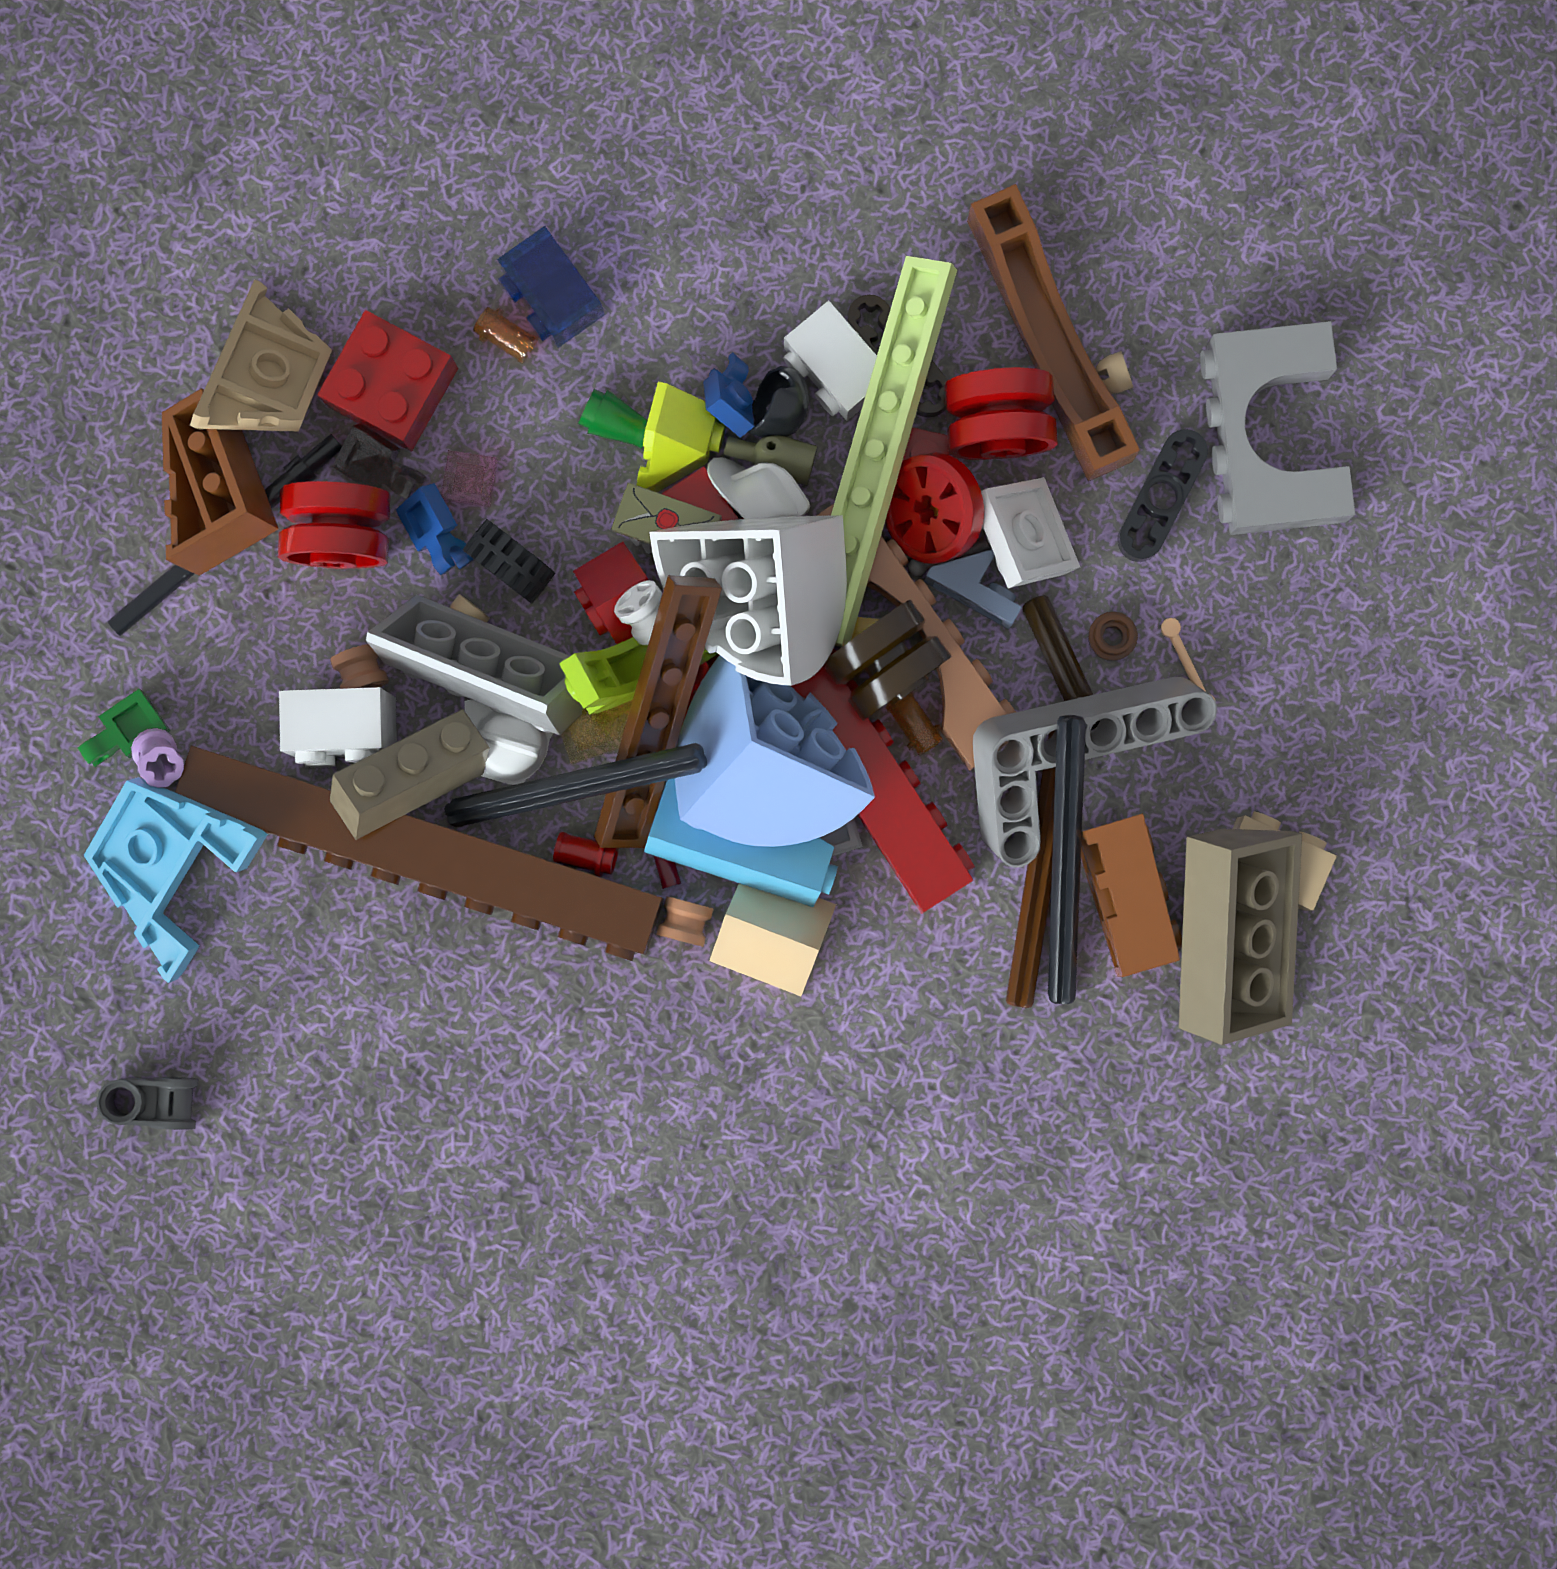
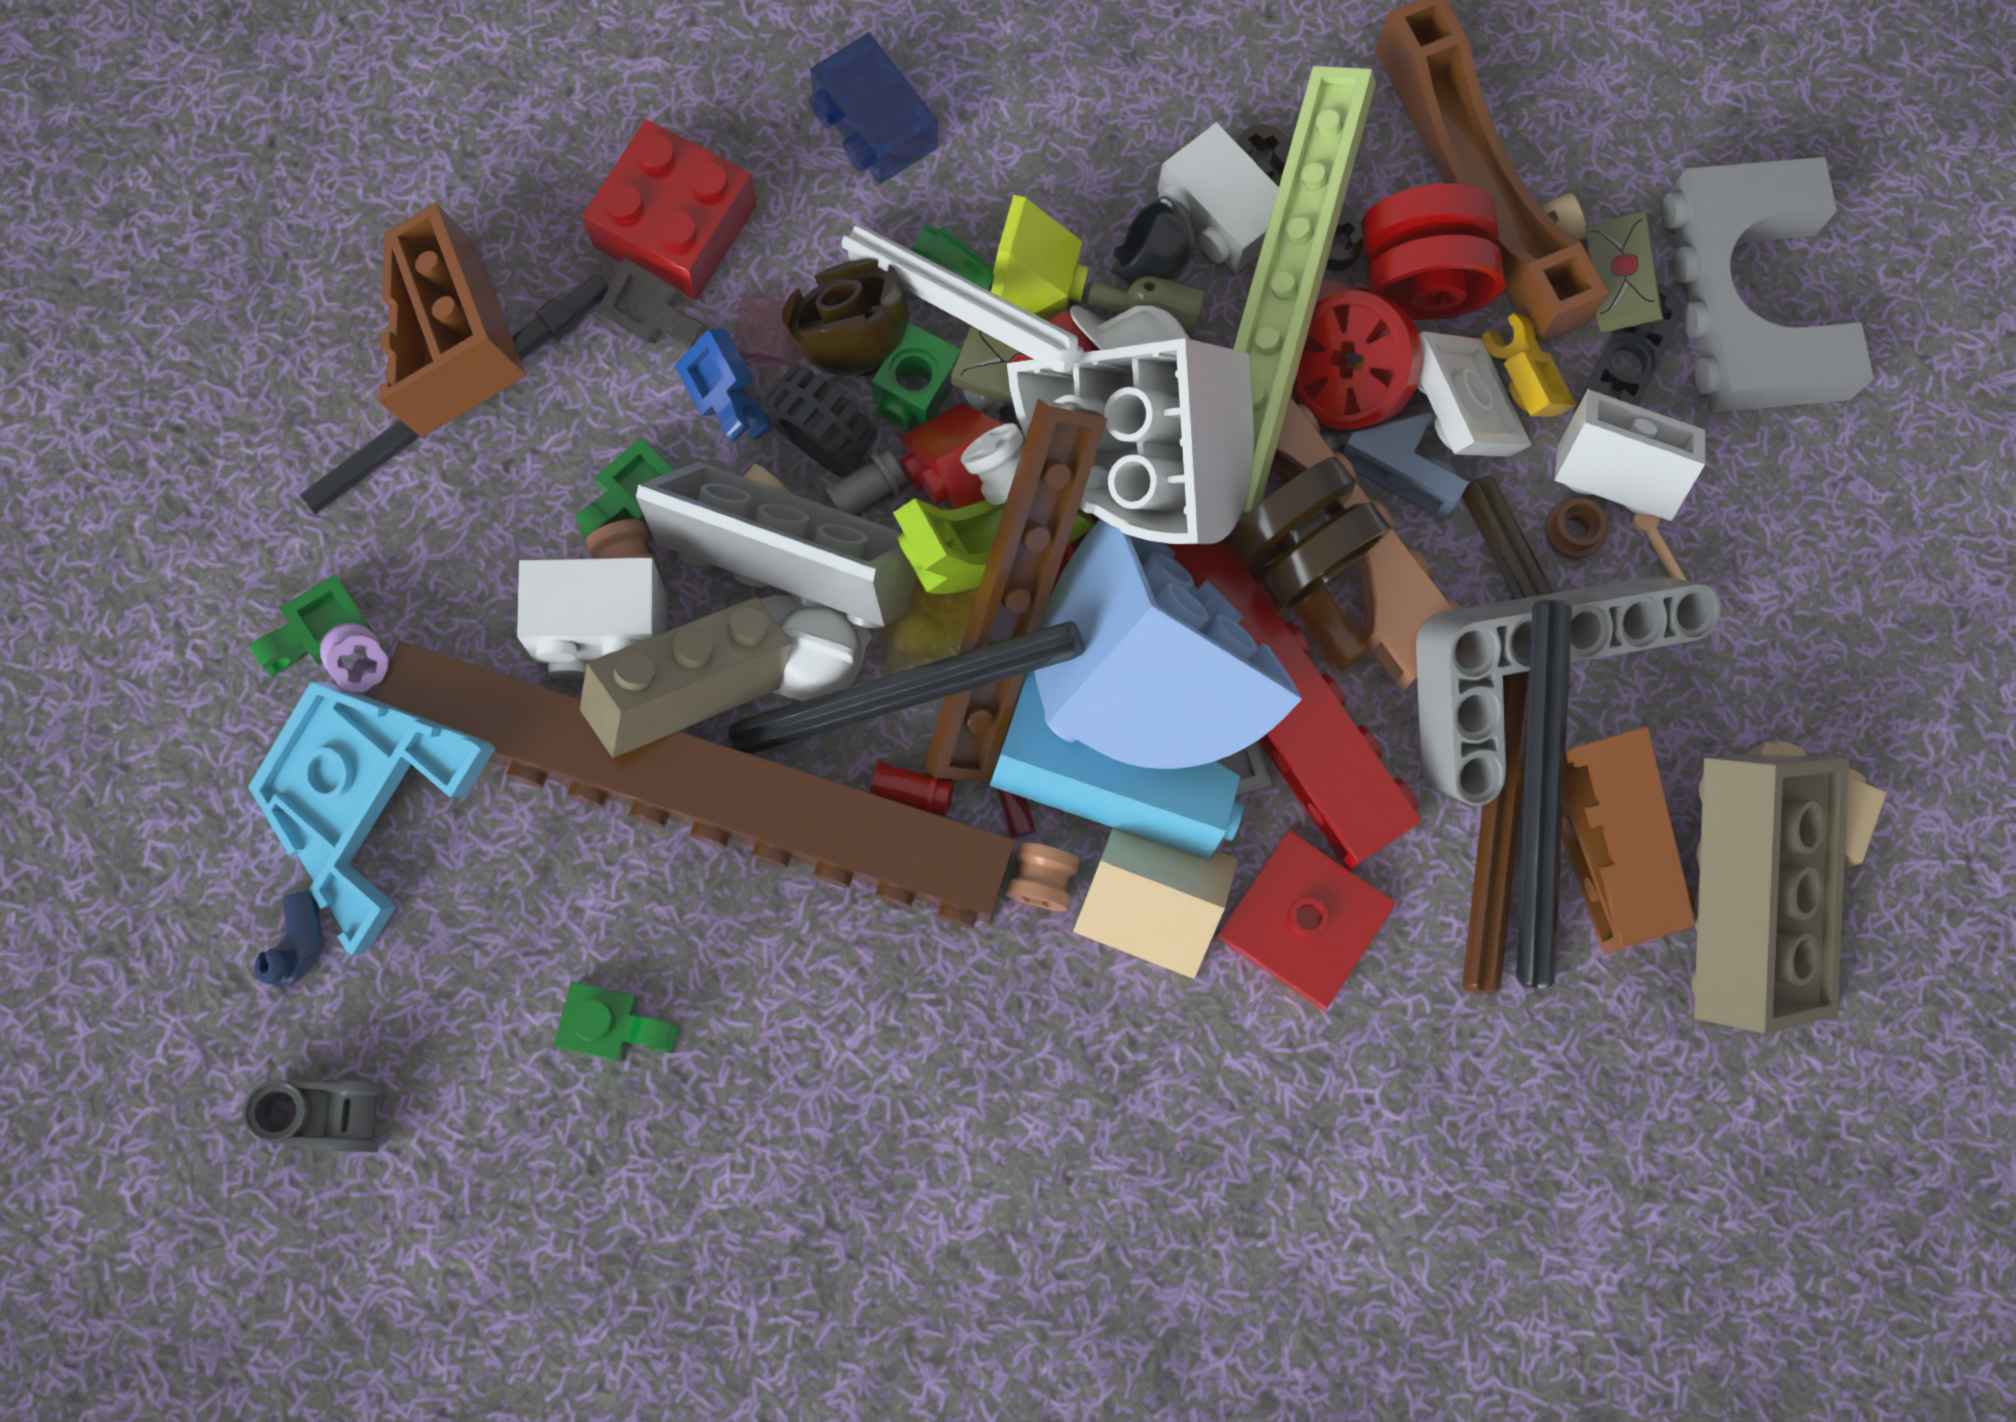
camera: 15 degrees left, 10 degrees down
(129, 975) = (299, 947): none -> dark blue arm
(263, 371) = (513, 192): tan wing -> none
(334, 525) = (597, 370): red wheel -> none
(357, 1033) = (604, 1022): none -> green plate
(362, 611) = (620, 485): none -> green plate
(504, 334) = (815, 163): clear orange pin -> none
(531, 473) = (849, 318): none -> dark brown cylinder
(548, 609) = (867, 484): none -> light grey pin
(582, 500) = (921, 356): none -> green brick
(616, 469) = (968, 301): none -> white axle
(729, 398) = (1098, 230): blue plate -> none
(887, 951) = (1306, 920): none -> red plate
(1083, 509) = (1534, 375): none -> yellow plate
(1154, 580) = (1630, 455): none -> white brick
(1160, 420) = (1626, 265): none -> olive tile

